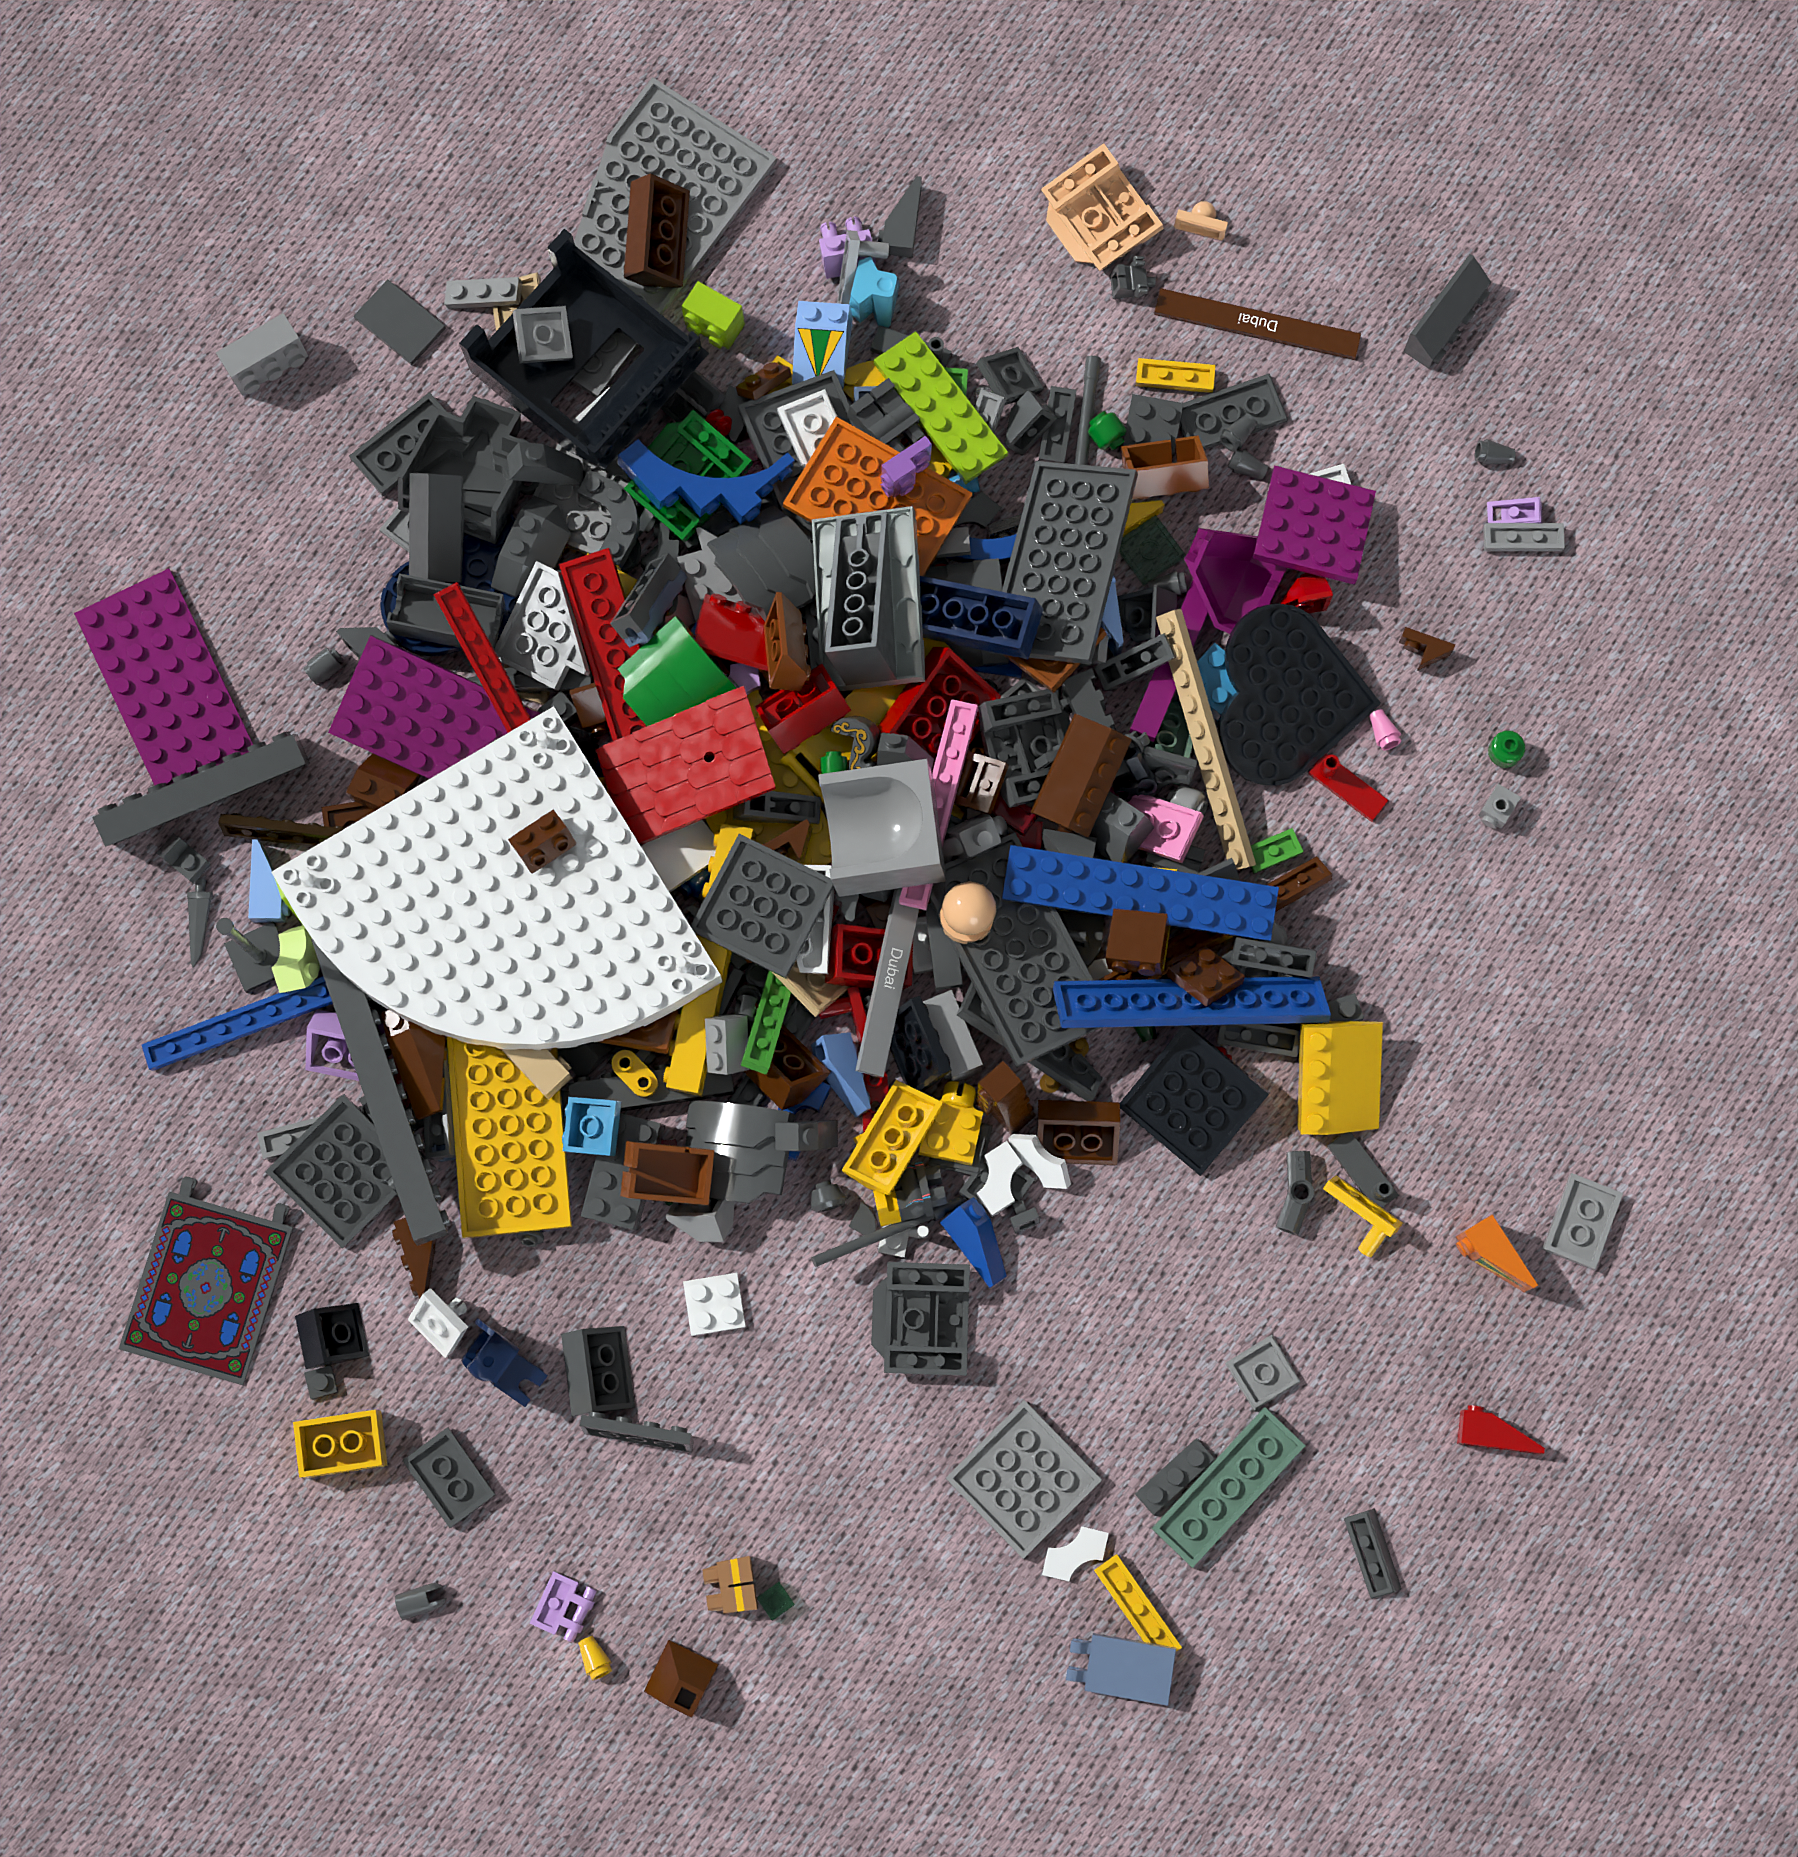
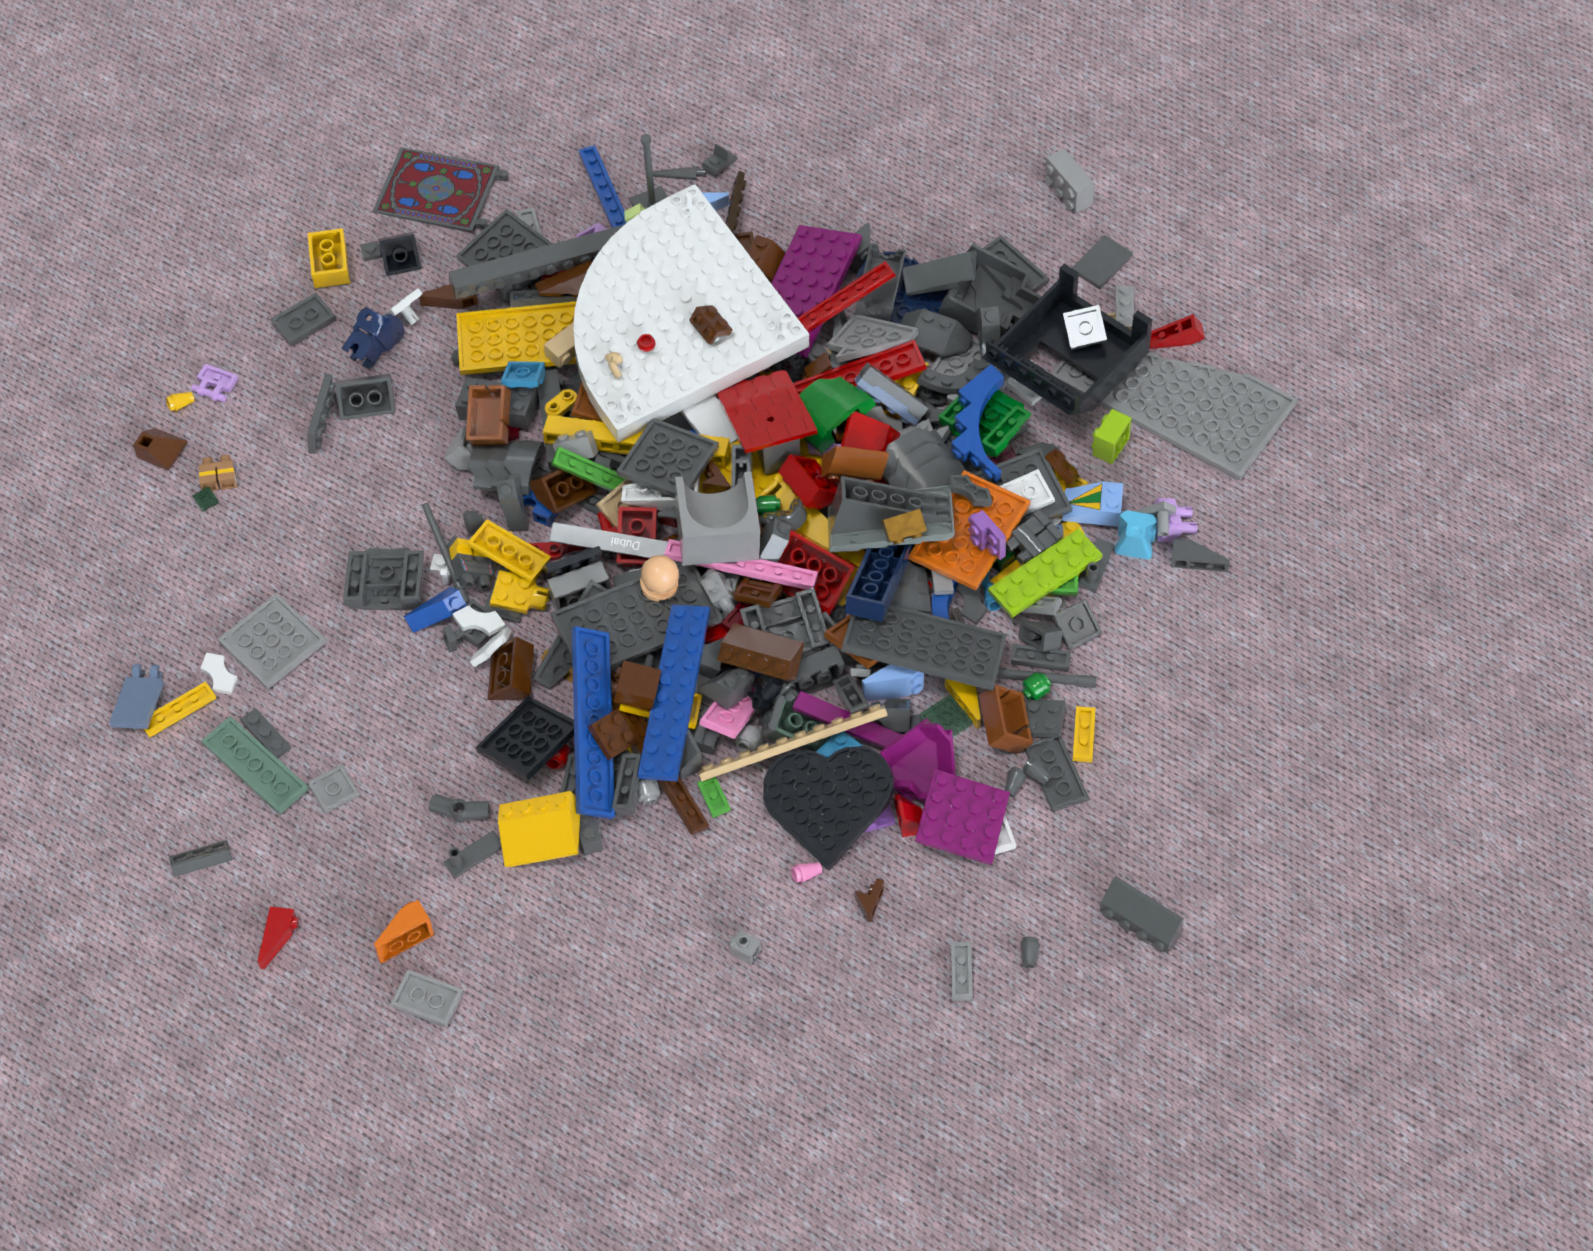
camera: 90 degrees right, 20 degrees down
(163, 678) = (840, 147): magenta plate -> none
(200, 790) = (763, 163): dark grey brick -> none
(323, 665) = (849, 225): dark grey brick -> none
(416, 1602) = (226, 305): dark grey piece -> none
(535, 230) = (1178, 333): none -> red slope
(575, 933) = (646, 342): none -> red plate
(609, 977) = (613, 360): none -> tan plate
(656, 232) = (1173, 401): reddish brown slope -> none
(701, 396) = (1045, 428): dark grey plate -> none
(714, 1304) = (405, 461): white plate -> none
(830, 484) = (975, 494): none -> dark grey tile
(839, 1056) = (571, 517): medium blue slope -> none
(907, 569) = (904, 525): none -> pearl gold brick
(1005, 1098) = (532, 611): reddish brown wedge -> none
(1098, 210) = (1214, 682): light nougat slope -> none
(1130, 280) = (1158, 704): dark grey piece -> none
(1201, 221) = (1214, 752): light nougat tile -> none
(1257, 324) = (1129, 792): reddish brown tile -> none
(1348, 786) = (763, 847): red piece -> none
(1383, 1222) = (438, 854): yellow piece -> none
(1506, 749) = (789, 952): green head -> none
(1517, 510) = (982, 970): lavender slope -> none

